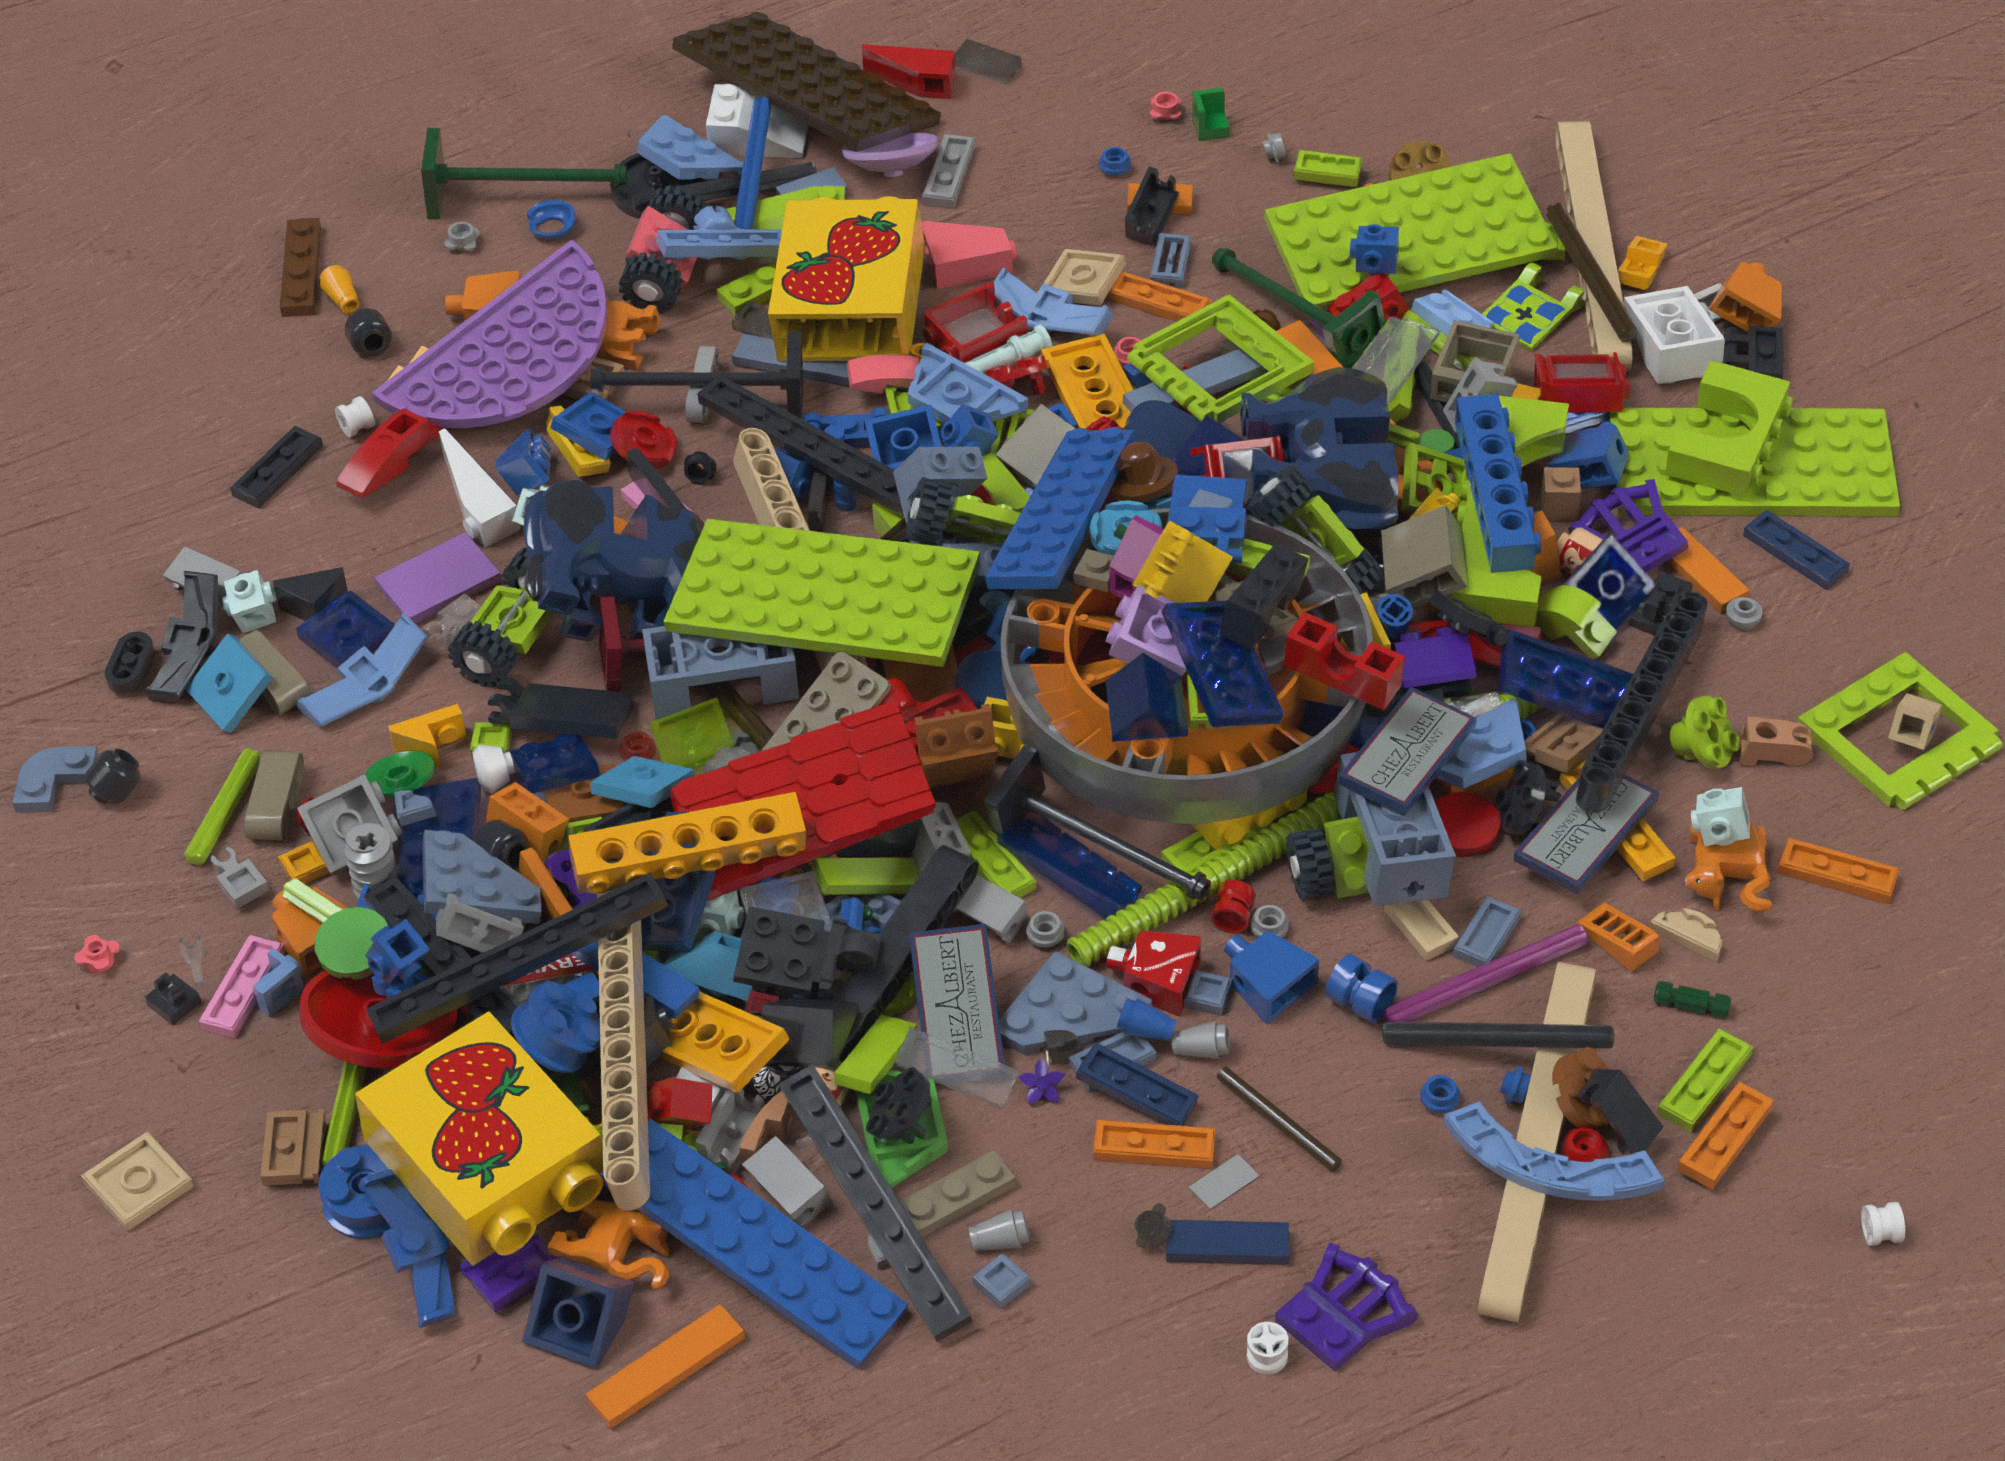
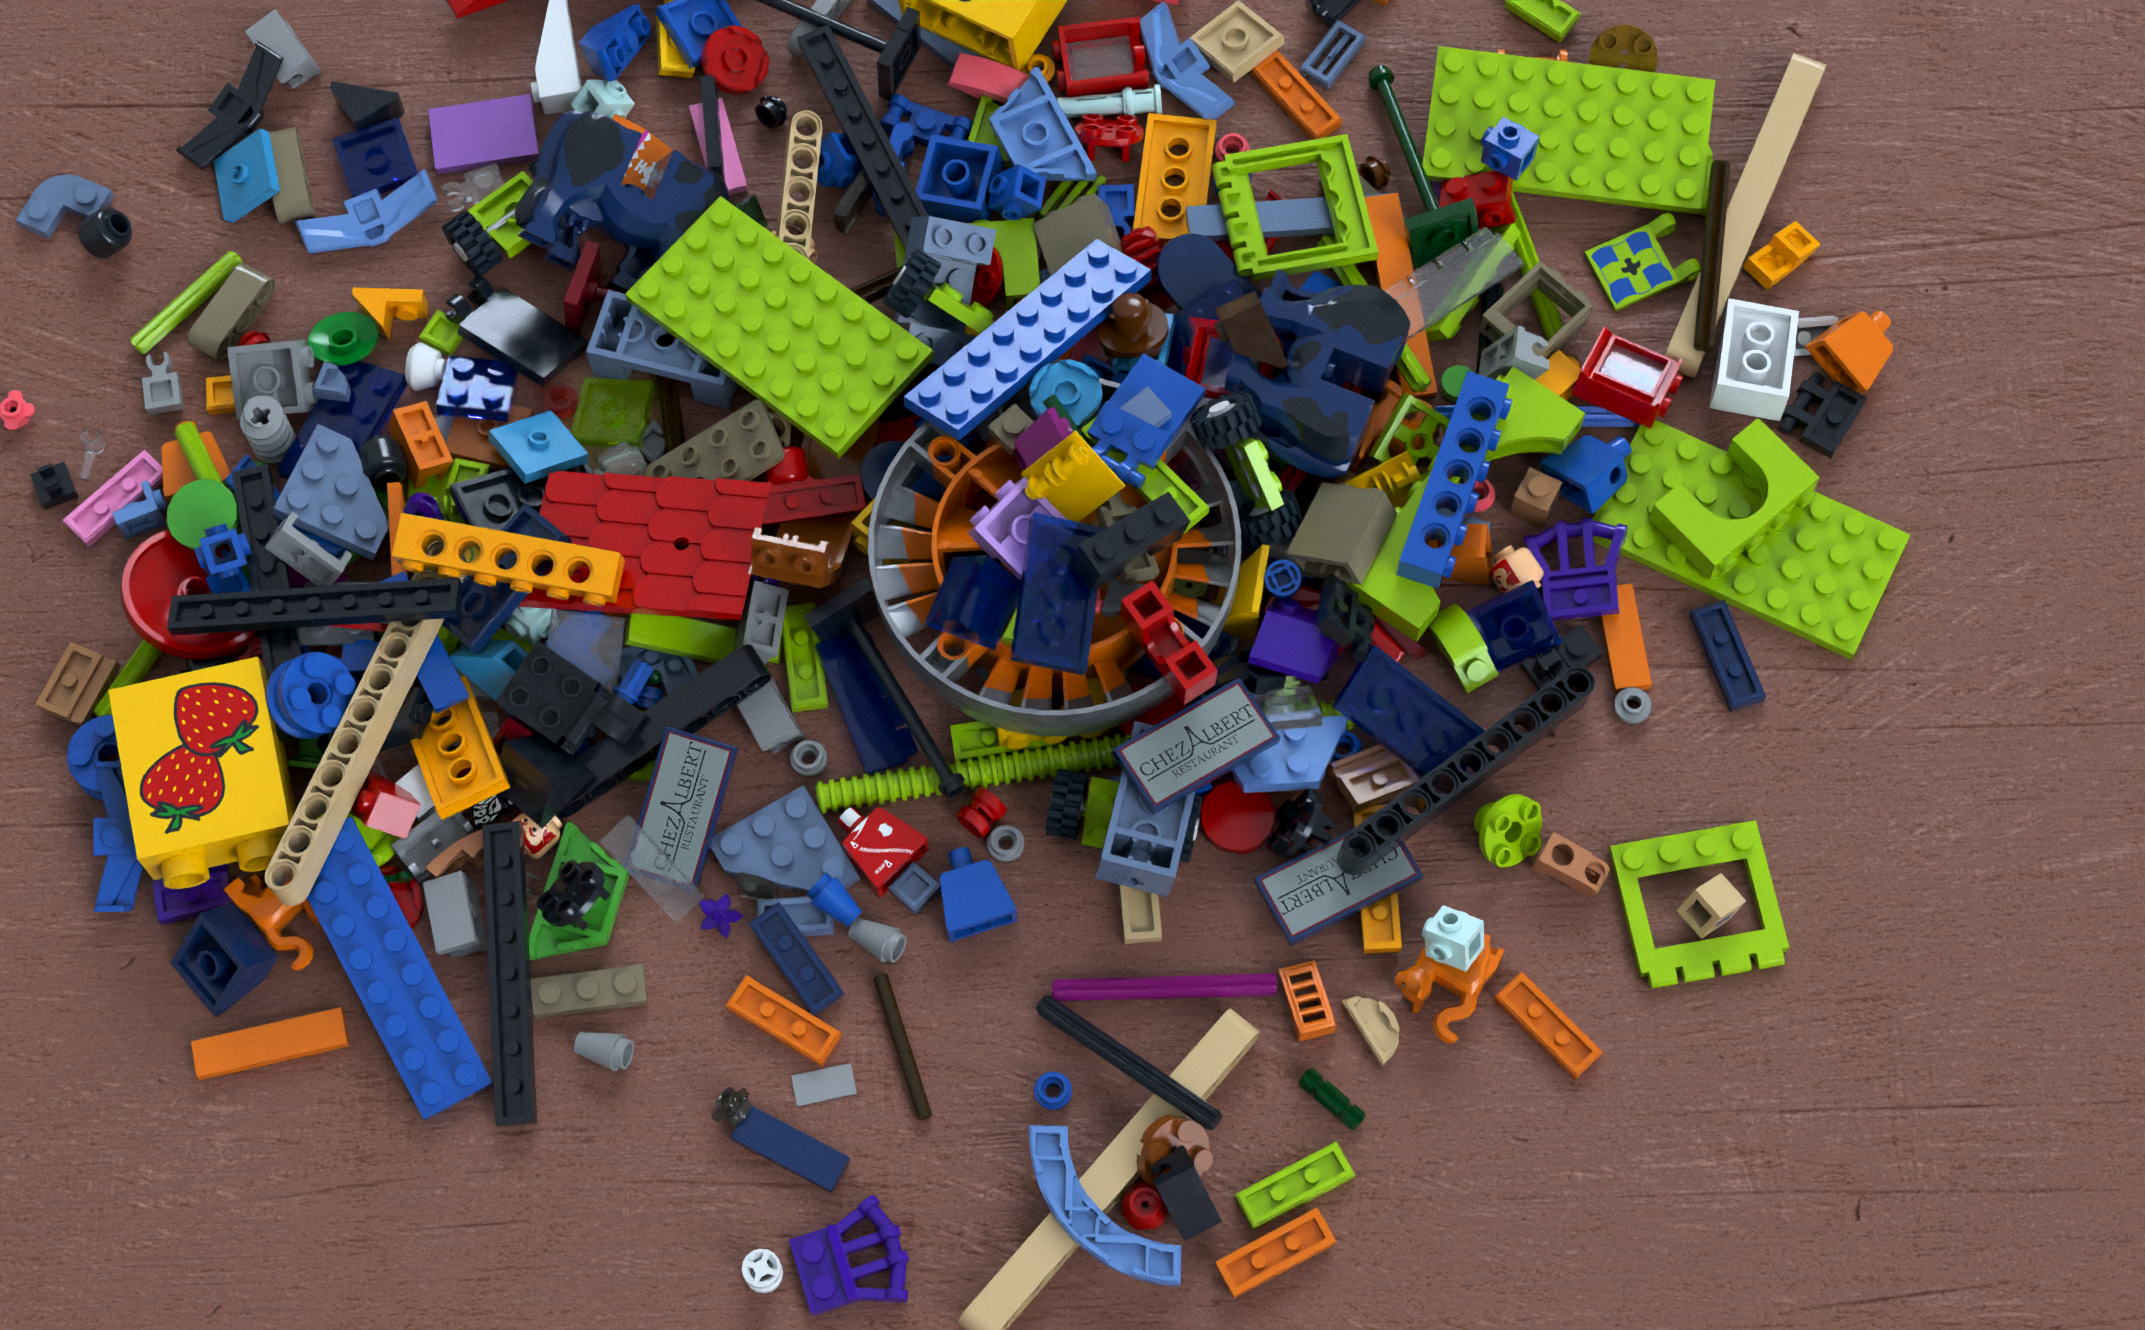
camera: 25 degrees right, 20 degrees up
(129, 662) = (176, 111): black plate -> none
(249, 601) = (305, 92): light aqua brick -> none
(873, 1055) = (589, 823): lime tile -> none
(1001, 1281) = (583, 1094): sand blue tile -> none
(1256, 425) = (1249, 330): none -> dark brown slope
(1357, 986) = (1041, 951): blue wheel -> none
(1444, 308) = (1558, 240): light blue plate -> none
(1487, 932) = (1192, 942): sand blue tile -> none
(1515, 1085) = (1120, 1114): blue plate -> none

